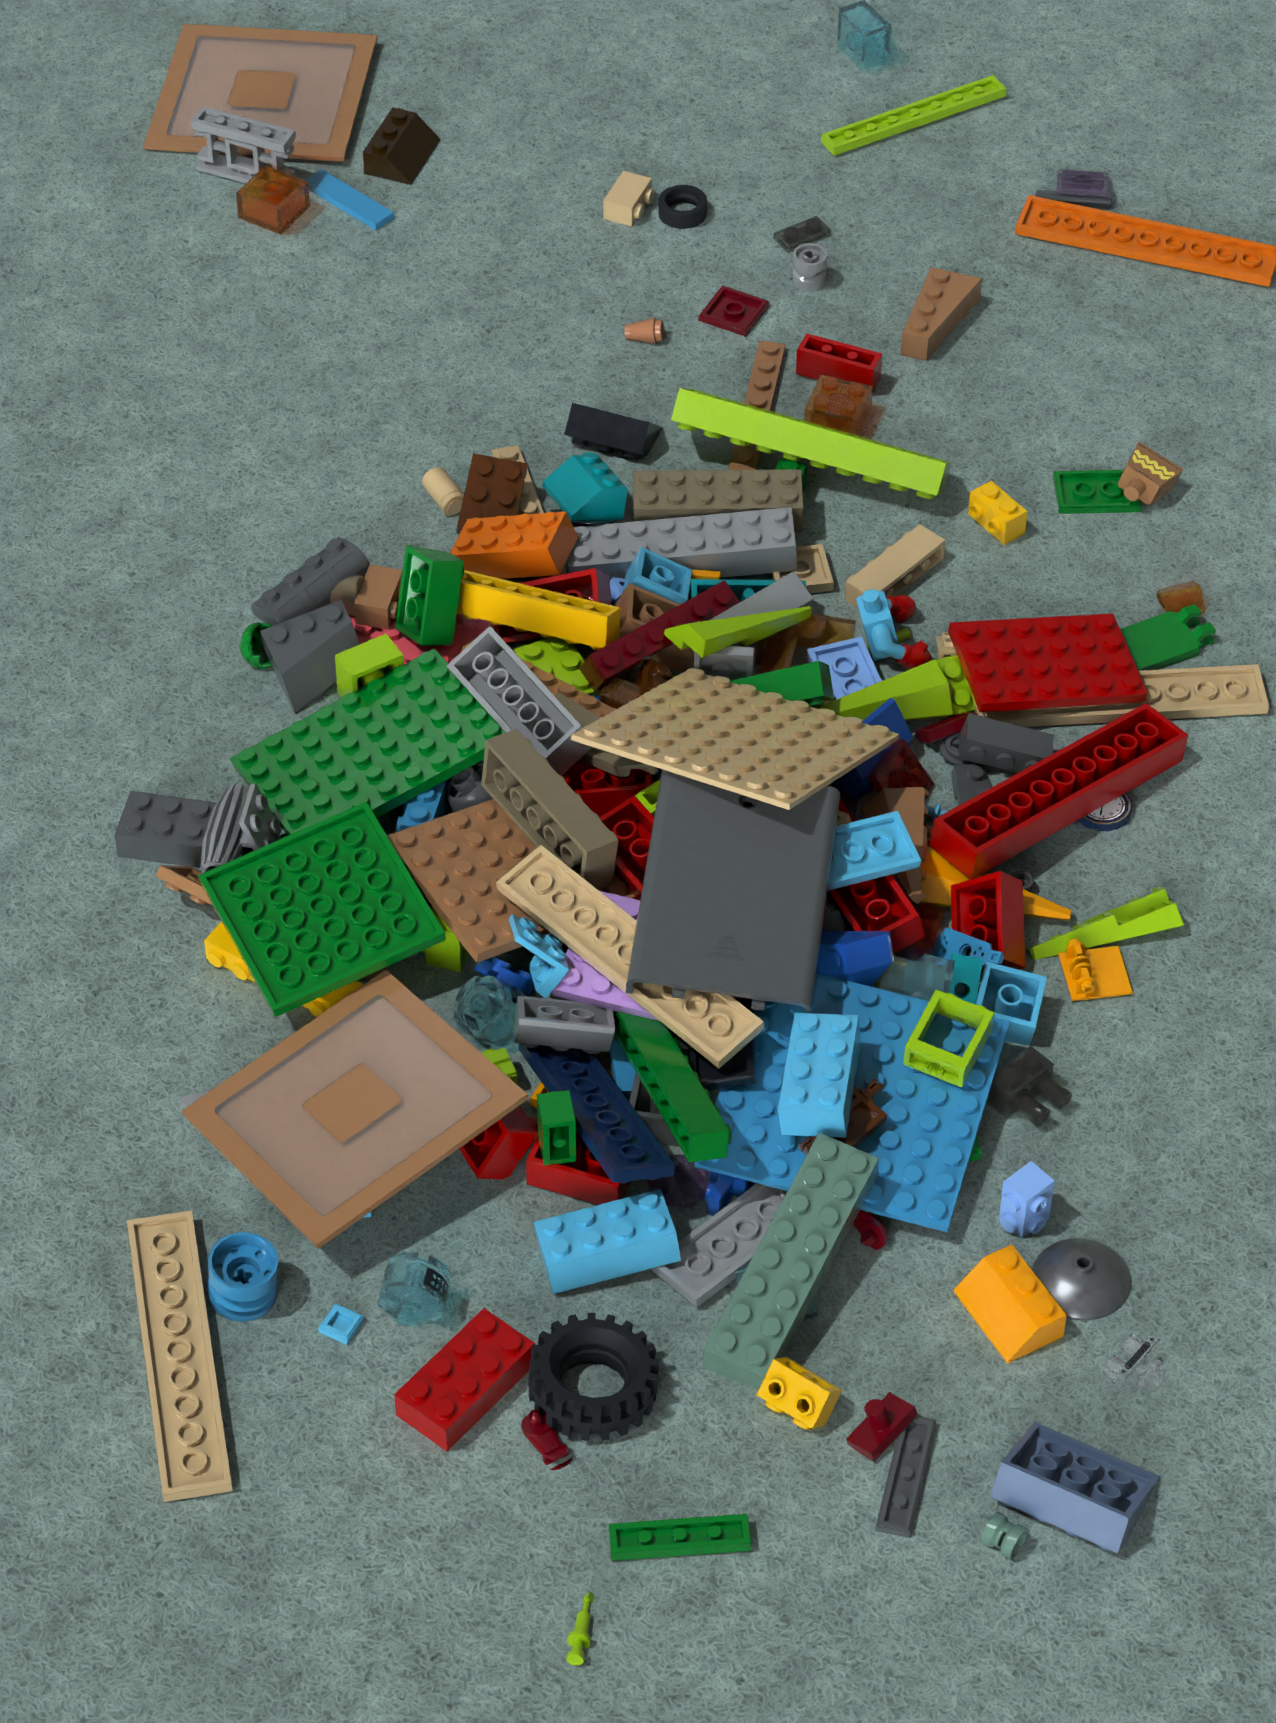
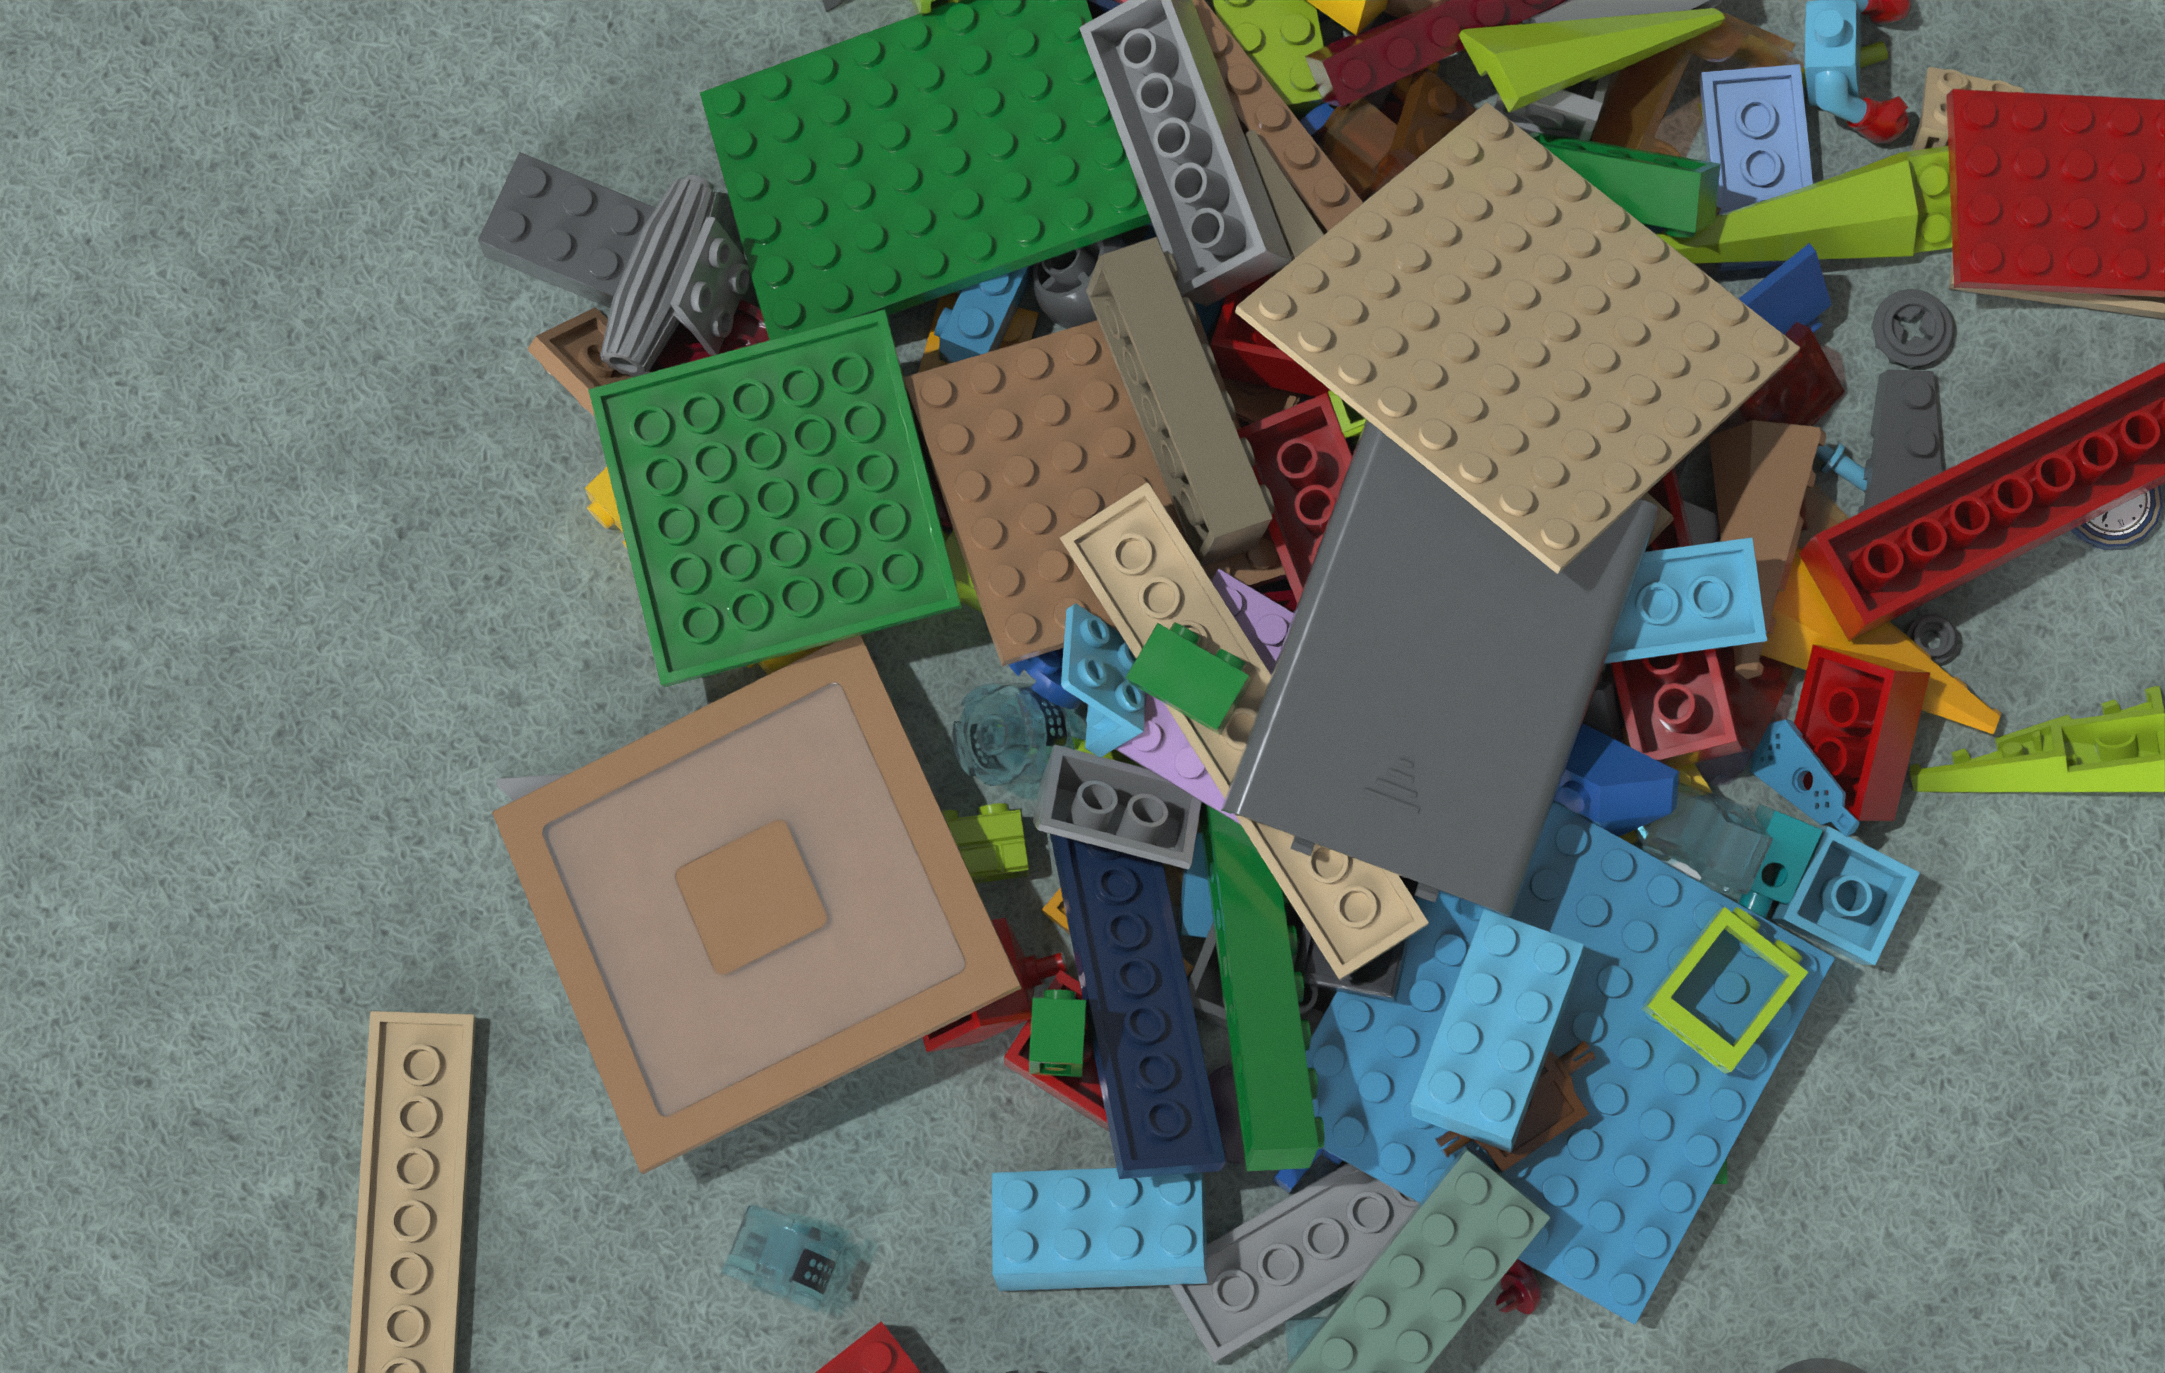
camera: 10 degrees right, 30 degrees up
(243, 1276) = (500, 1154): dark azure wheel -> none
(341, 1324) = (665, 1270): medium azure tile -> none
(589, 925) = (1189, 677): none -> green brick
(942, 728) = (1897, 281): dark red tile -> none
(1002, 744) = (1981, 355): dark grey brick -> none
(1021, 1082) = (1837, 1044): clear smoke brick -> none
(1026, 1200) = (1772, 1301): light blue brick -> none
(1094, 972) = (2005, 845): light orange hinge -> none

